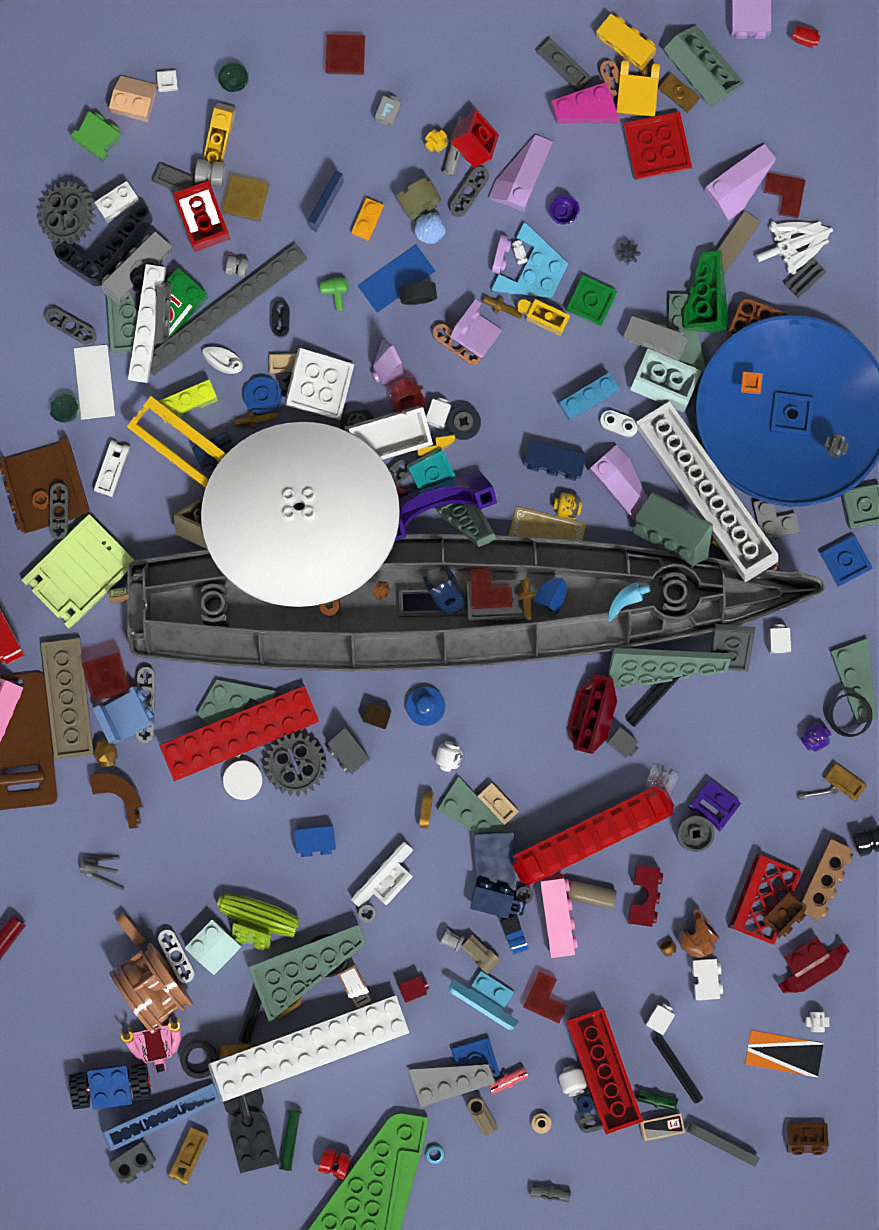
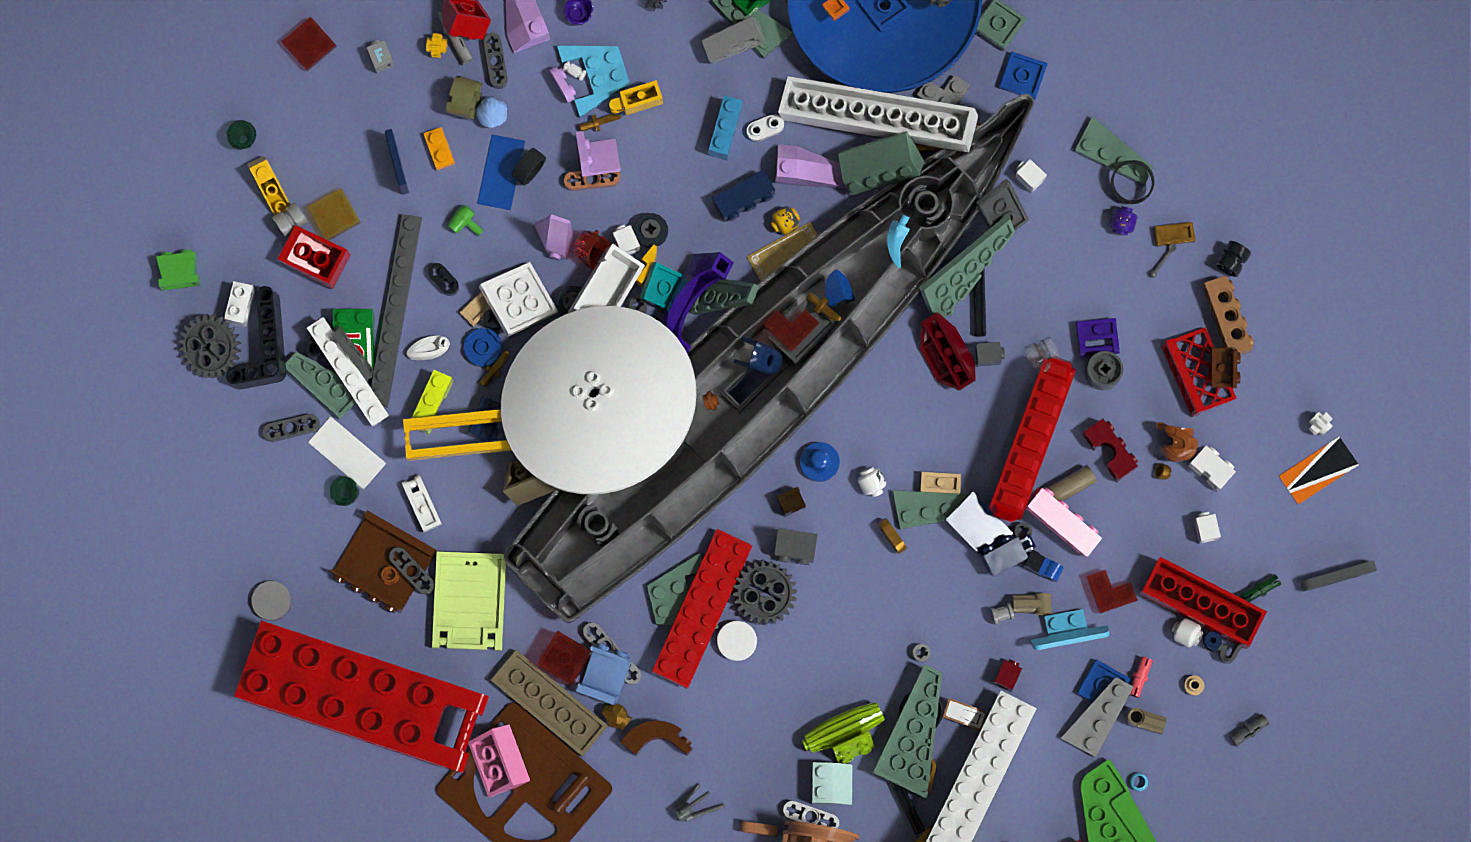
camera: 45 degrees left, 5 degrees down
(118, 595) = (516, 589): slope -> none
(133, 98) = (180, 218): light nougat slope -> none
(152, 251) = (300, 361): light grey arch -> none
(167, 81) = (193, 183): white tile -> none
(172, 178) = (265, 250): dark grey tile -> none
(233, 268) = (370, 271): light grey wheel -> none
(315, 840) = (832, 635): blue brick -> none
(332, 611) = (683, 454): dark orange plate -> none
(387, 880) = (913, 613): white bracket -> none
(591, 300) = (660, 57): green plate -> none
(662, 1127) = (1283, 605): slope -> none
(665, 380) = (769, 64): light aqua slope -> none
(677, 1068) = (1254, 553): black axle -> none
(807, 1138) = (1394, 514): reddish brown bracket -> none
(811, 964) = (1277, 387): dark red plate -> none

